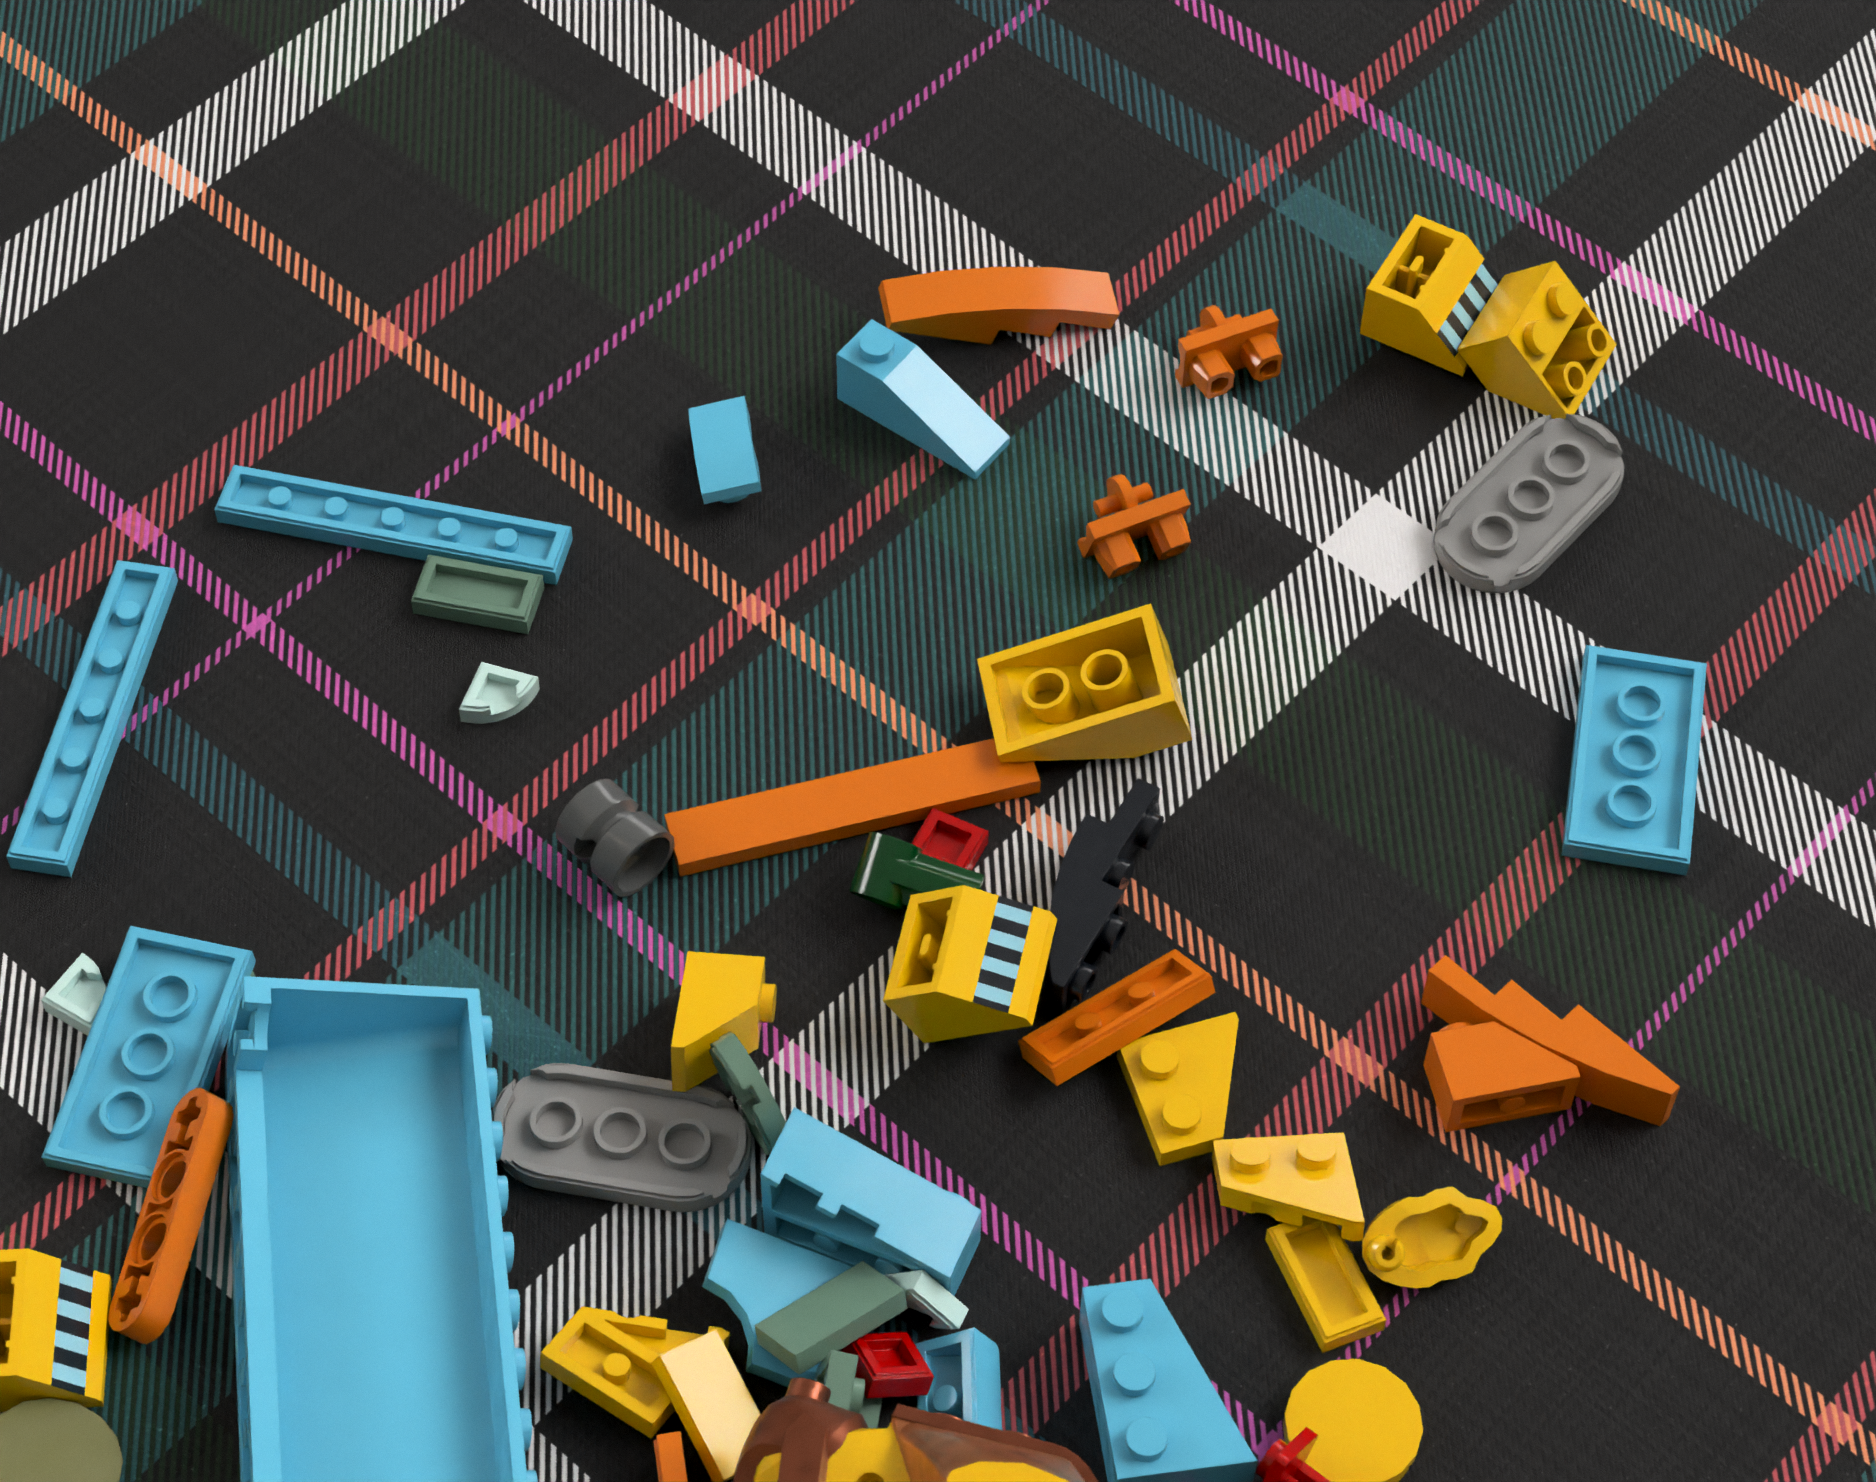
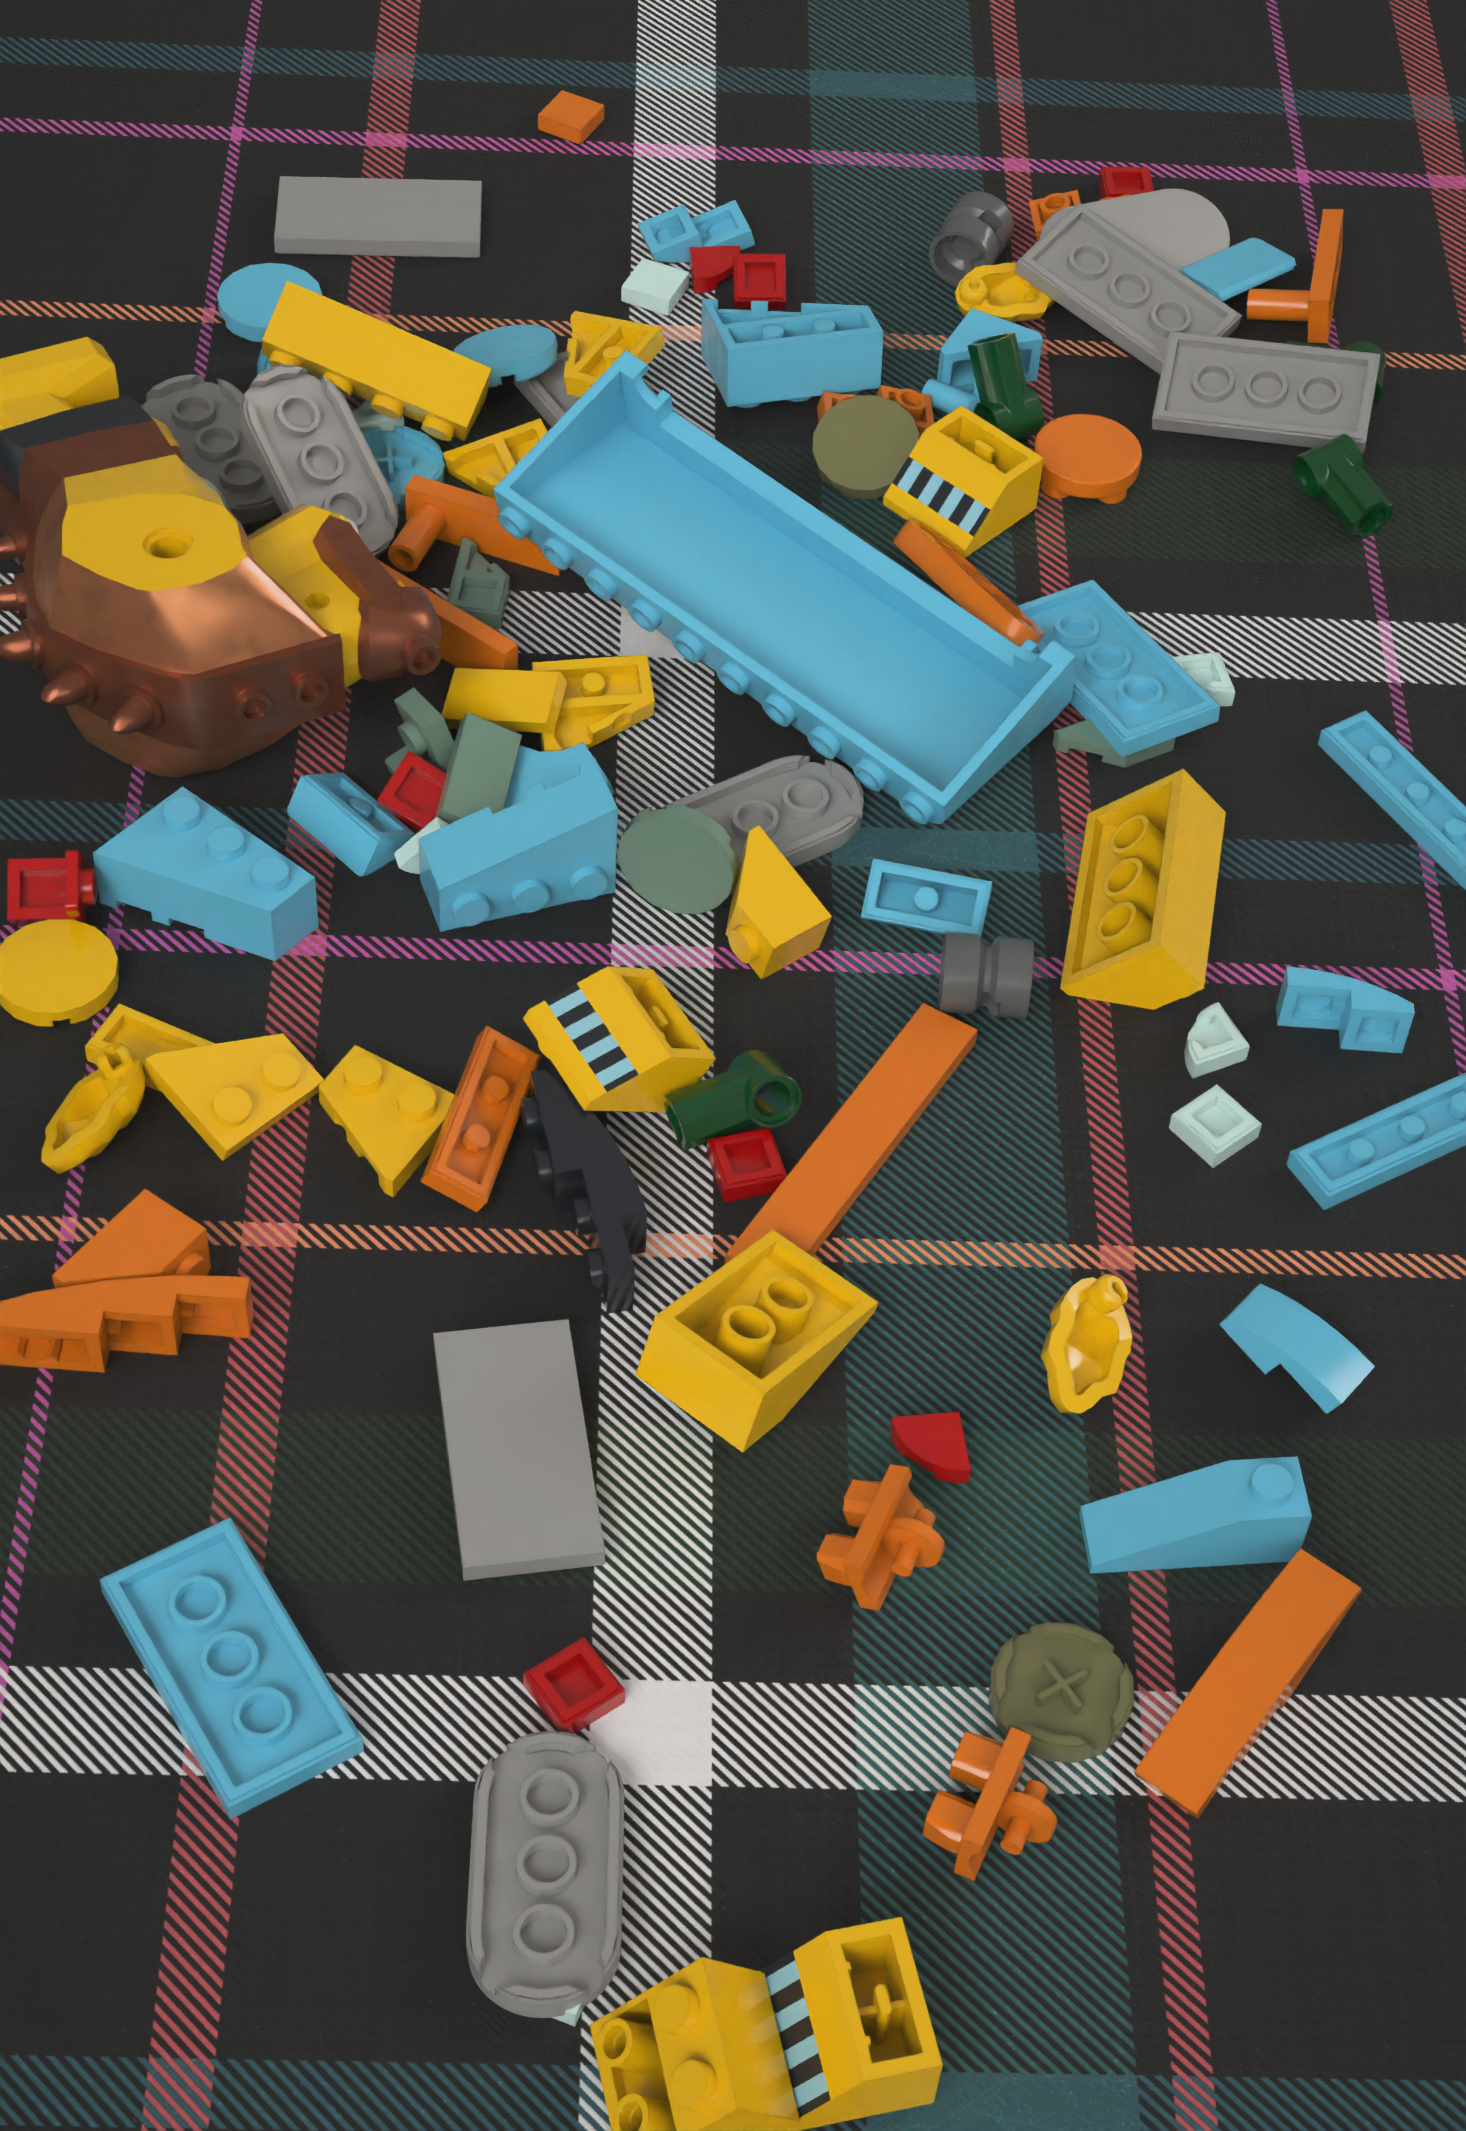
camera: 135 degrees right, 5 degrees down
(385, 631) = (1362, 1012): none -> medium azure slope
(406, 823) = (1145, 896): none -> yellow slope
(478, 594) = (1325, 1102): sand green tile -> none
(560, 964) = (925, 899): none -> medium azure slope
(576, 635) = (1215, 1126): none -> light aqua tile
(862, 546) = (1087, 1343): none -> yellow arm
(1028, 569) = (934, 1444): none -> red tile
(1109, 389) = (1062, 1691): none -> olive tile
(1314, 763) = (517, 1450): none -> light grey tile
(1416, 592) = (574, 1687): none -> red tile

